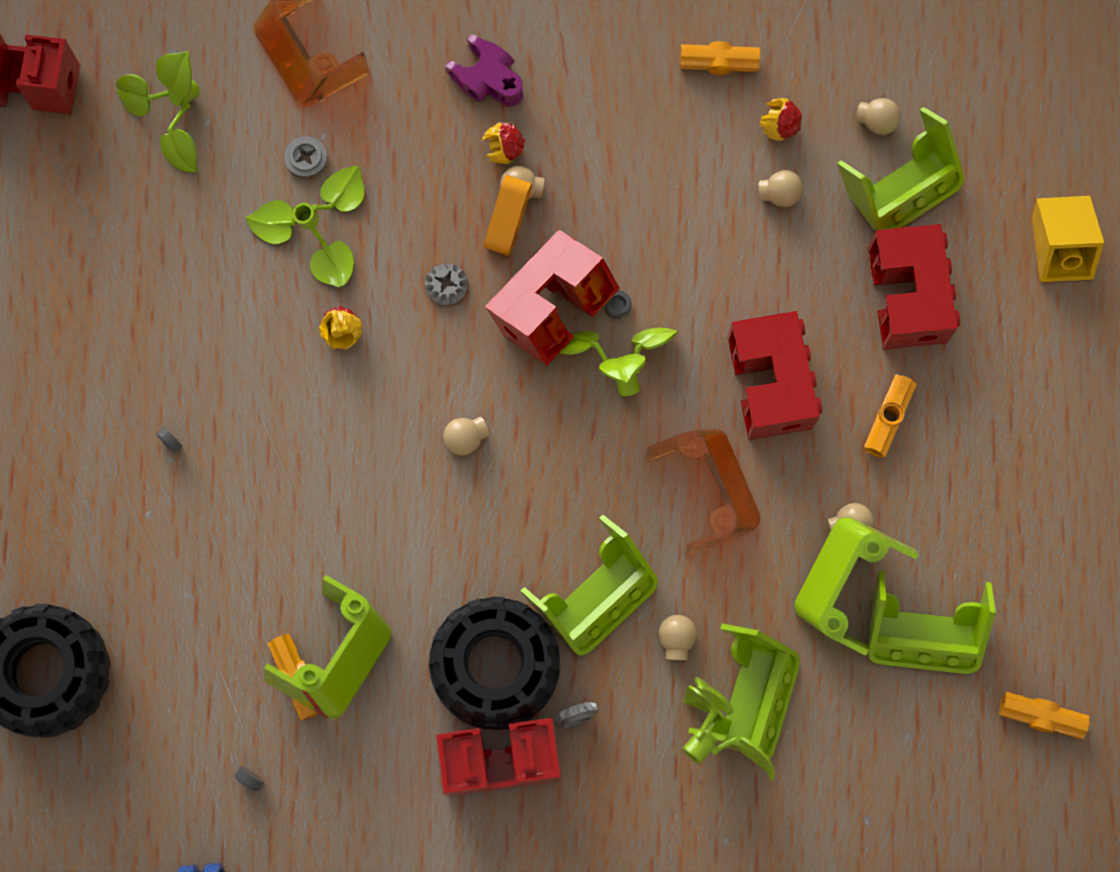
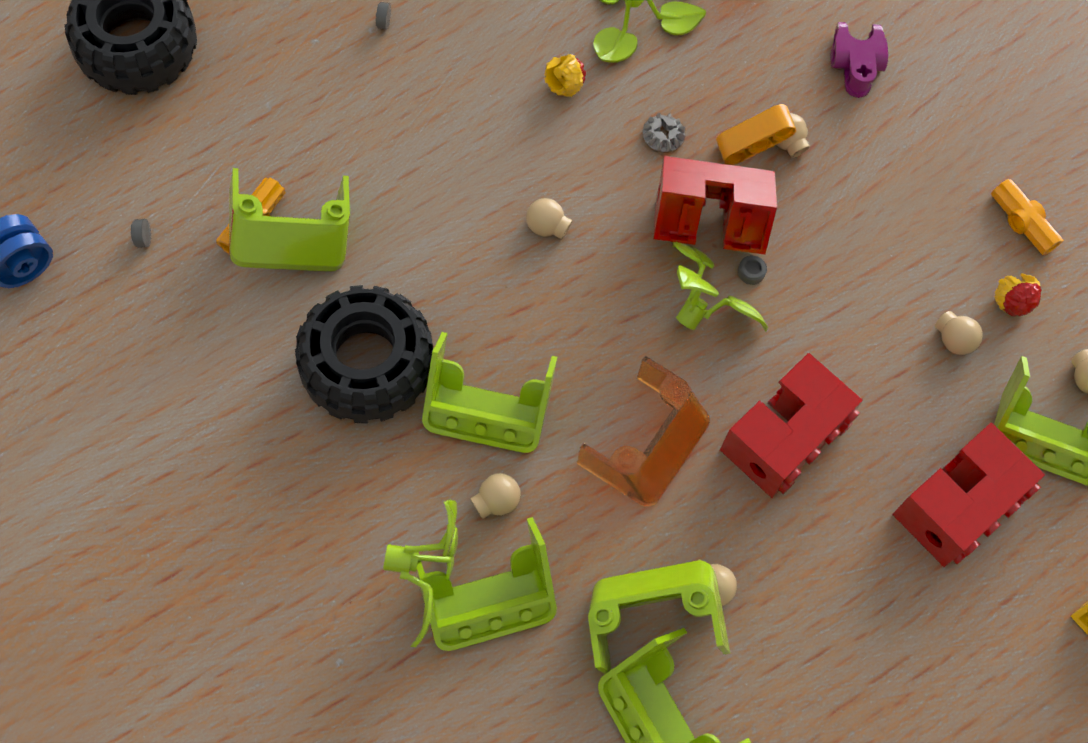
camera: 50 degrees right, 10 degrees down
(471, 769) = (259, 383): red piece -> none
(505, 141) = (814, 101): piece -> none
(576, 715) = (365, 451): light grey gear -> none
(895, 401) = (853, 551): light orange piece -> none

